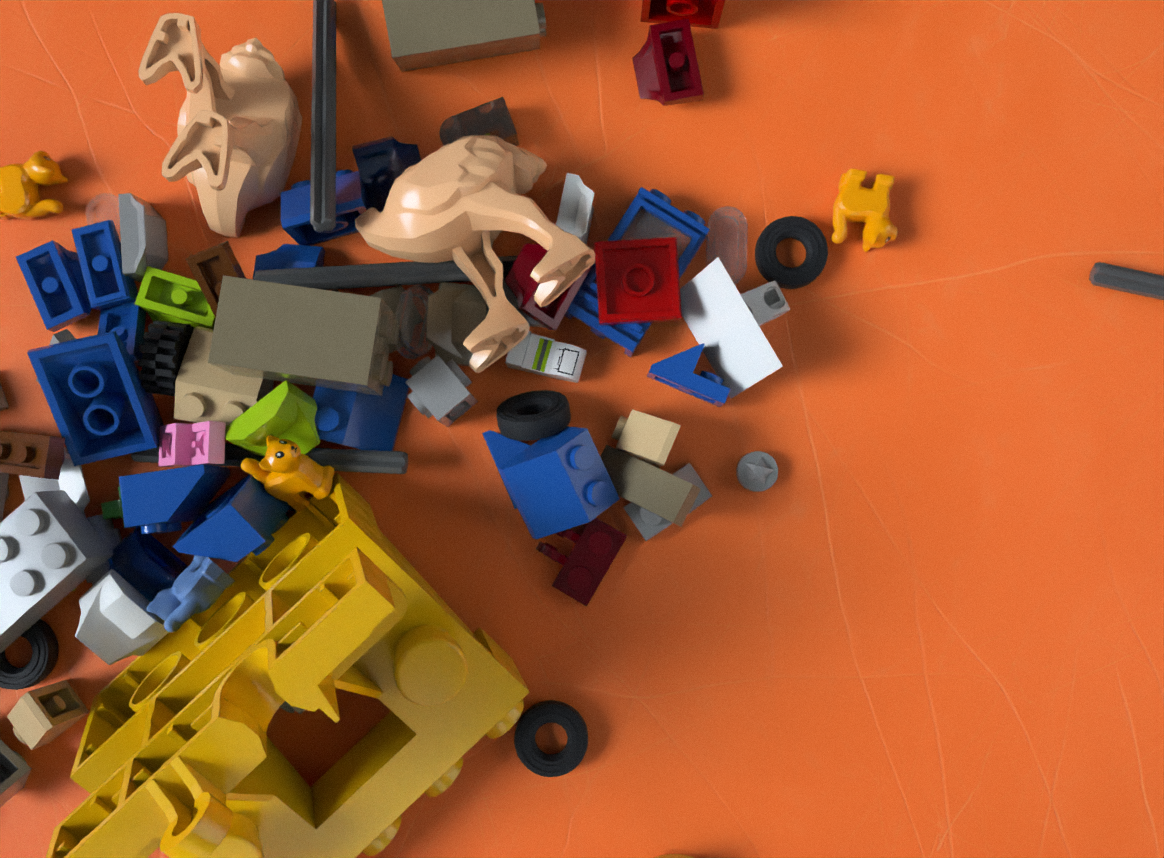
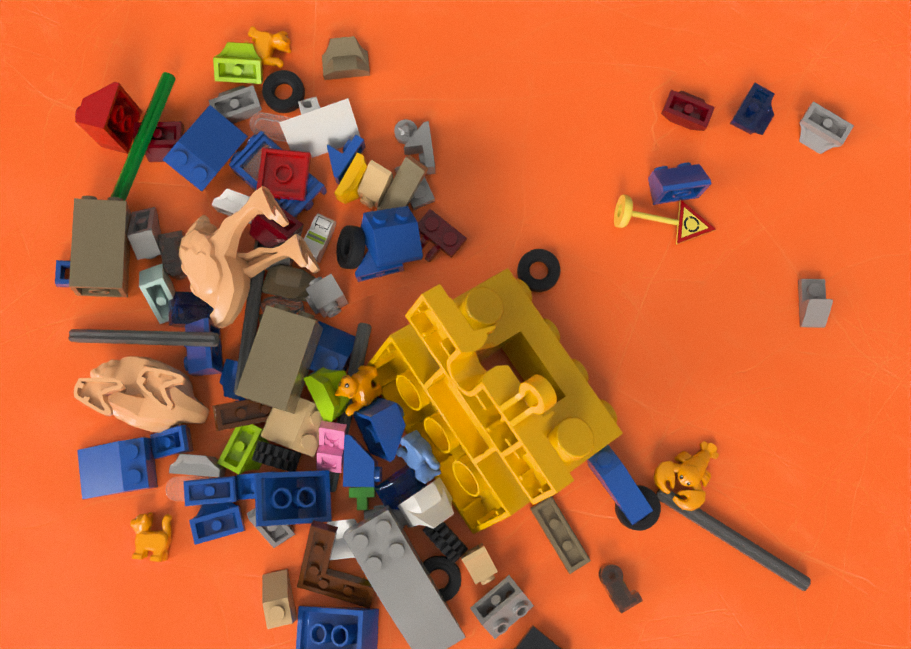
camera: 85 degrees left, 5 degrees down
(65, 661) = (446, 541): none -> black tyre
(121, 118) = (117, 468): none -> slope
(171, 200) = (171, 442): none -> blue slope
(414, 114) = (157, 290): none -> light aqua slope
(506, 74) = (144, 233): none -> light grey slope
(655, 398) = (348, 187): none -> yellow slope
(661, 143) = (205, 148): none -> blue slope
(663, 38) = (143, 136): none -> green axle
(740, 502) = (422, 144): none -> light grey slope
(752, 176) = (237, 103): none -> light grey slope
(821, 168) = (238, 64): none -> lime slope
(867, 345) = (345, 59): none -> dark tan slope

